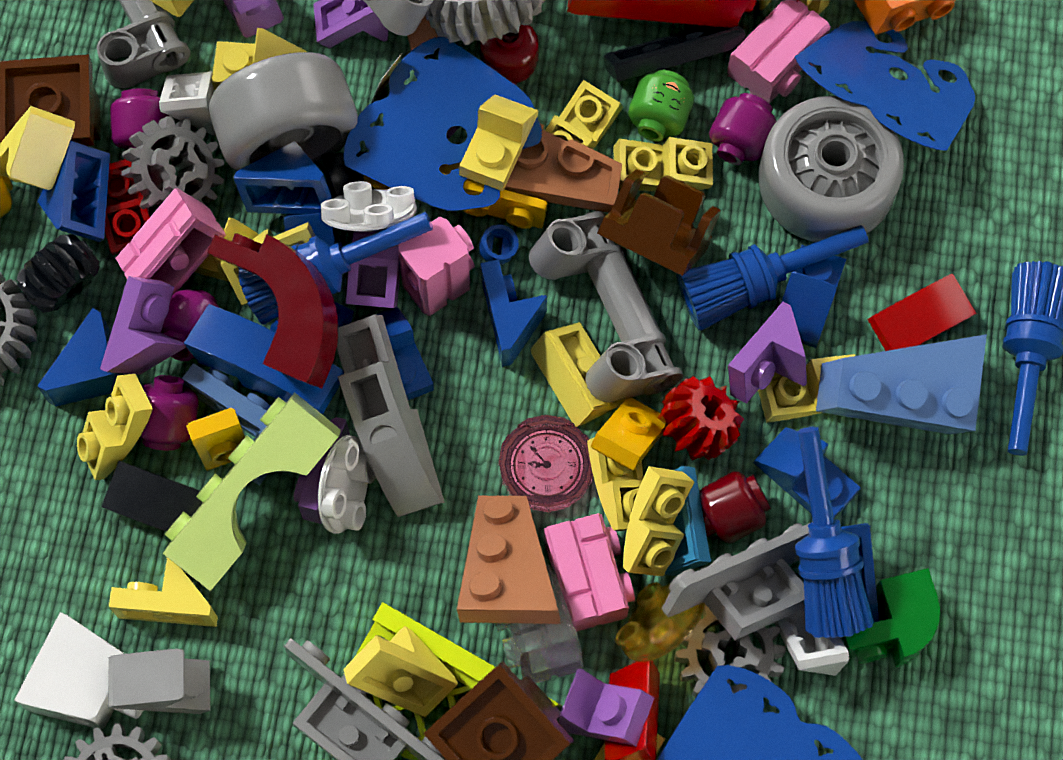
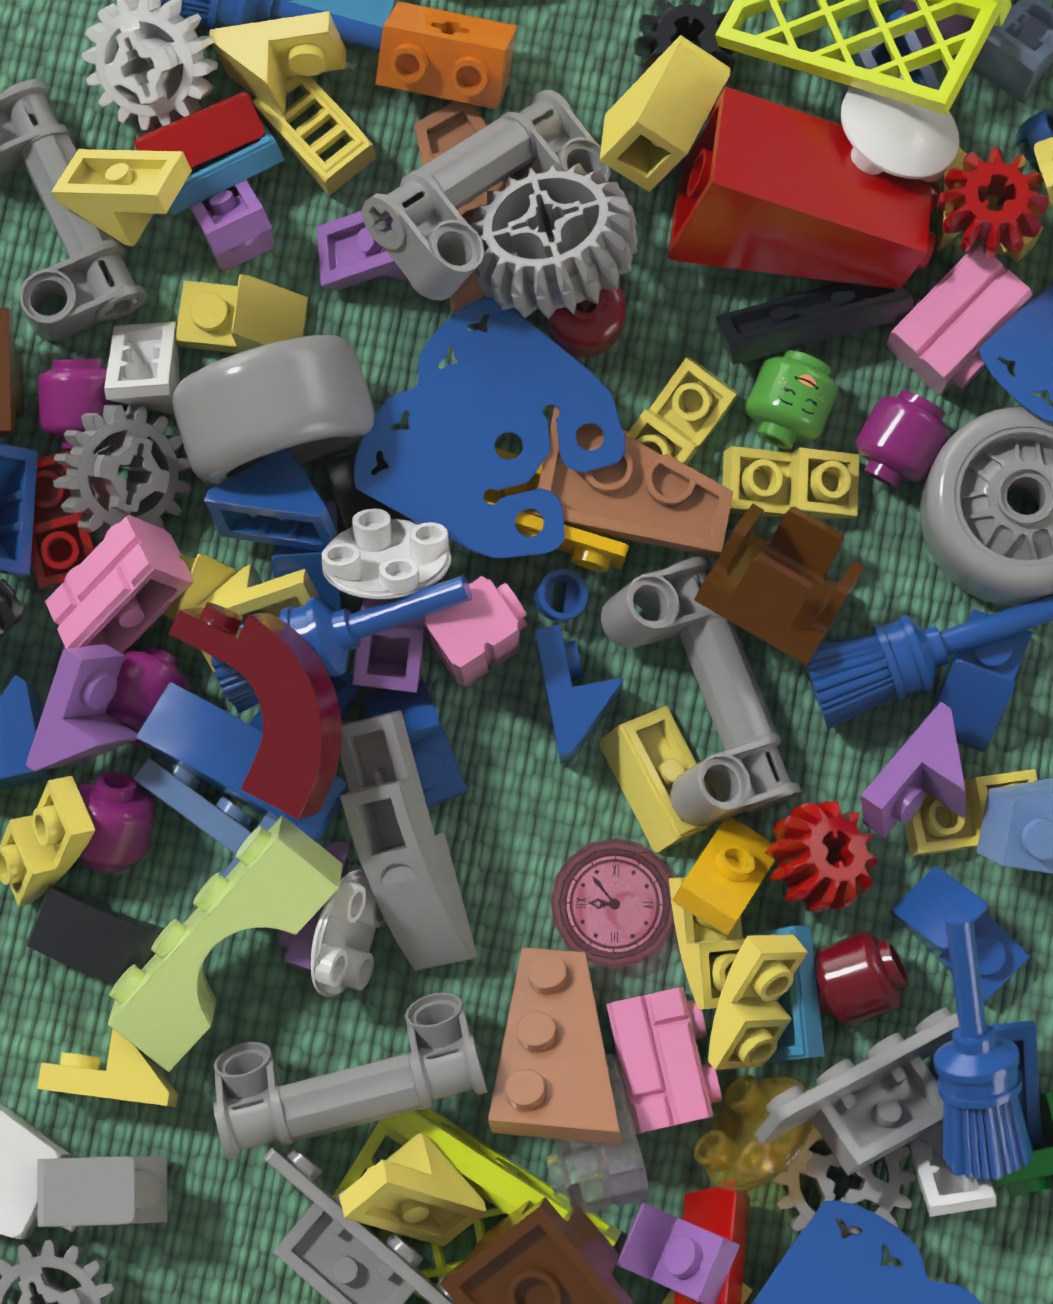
camera: 10 degrees right, 10 degrees up
(216, 437) = (181, 867): yellow plate -> none
(279, 611) = (258, 1110): none -> light grey piece
(385, 79) = (414, 352): sticker -> none
(497, 141) = (564, 460): light yellow slope -> none

